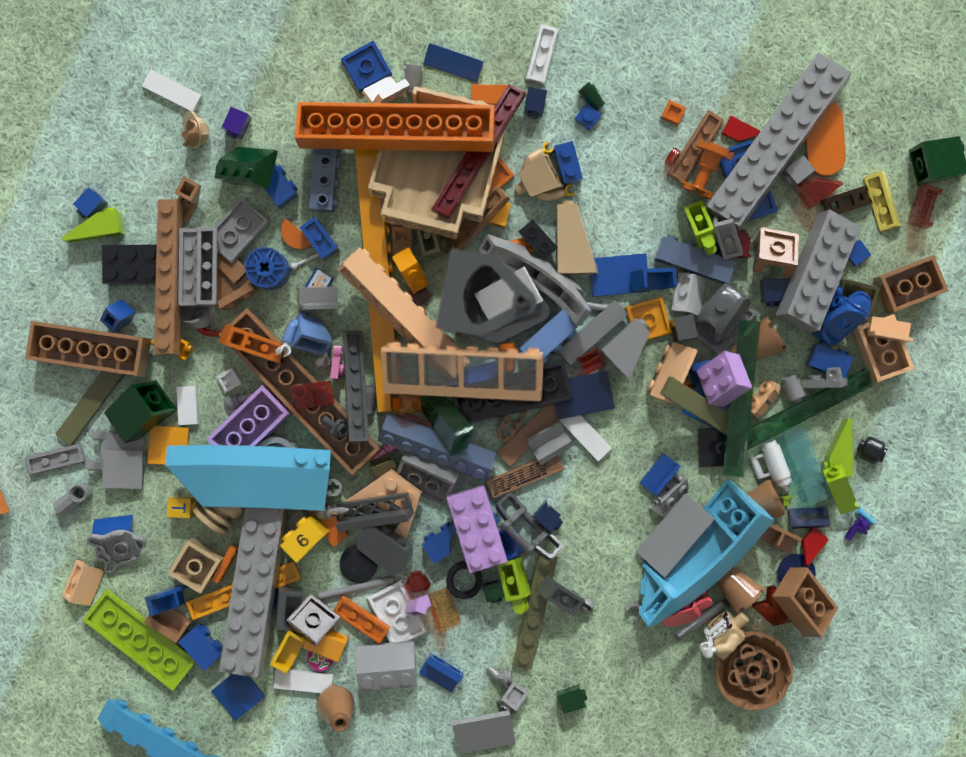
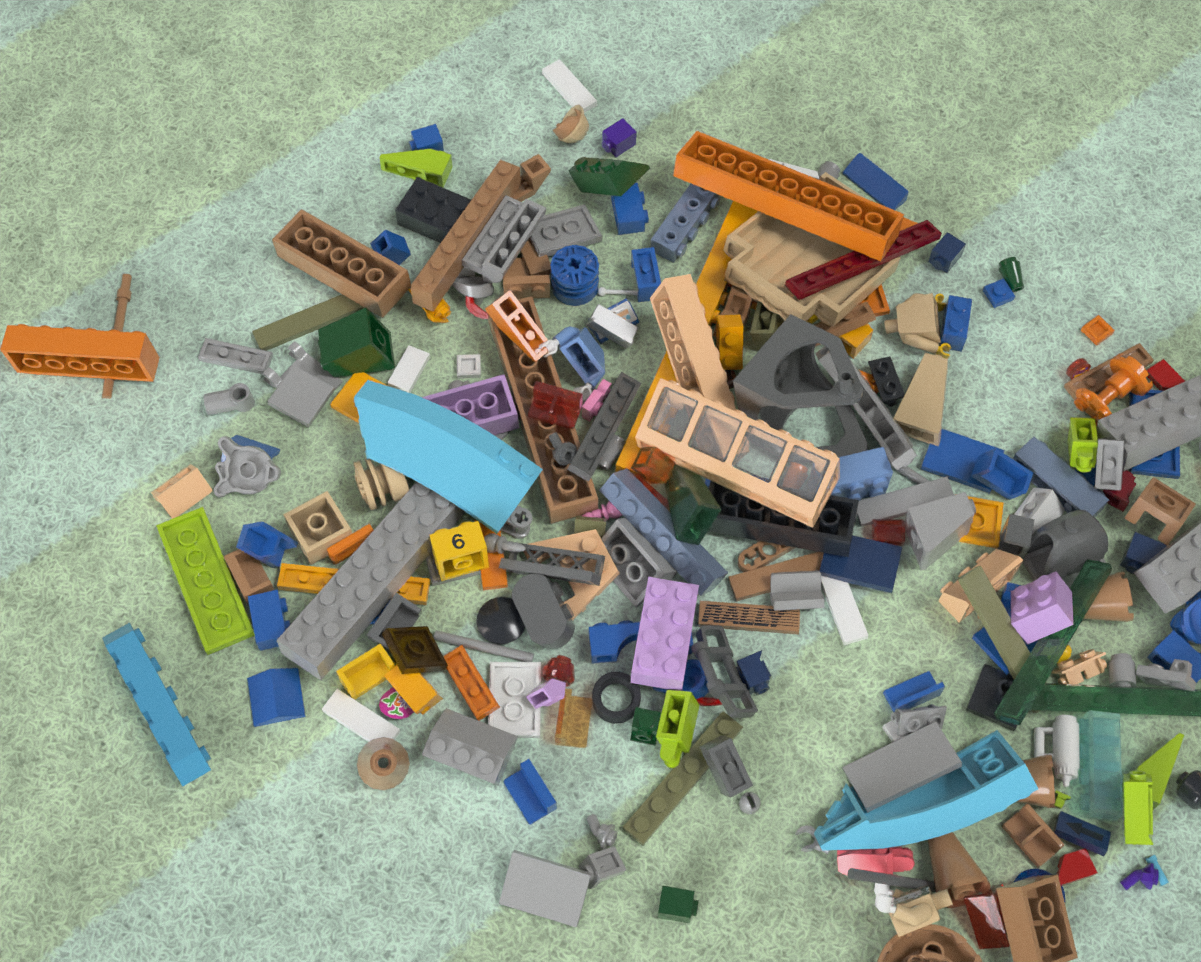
camera: 25 degrees right, 25 degrees down
(181, 507) = (338, 462): yellow brick -> none
(293, 236) = (619, 264): orange tile -> none
(366, 66) = (782, 146): blue tile -> none
(499, 296) = (826, 422): white tile -> none
(542, 54) = (975, 216): white tile -> none

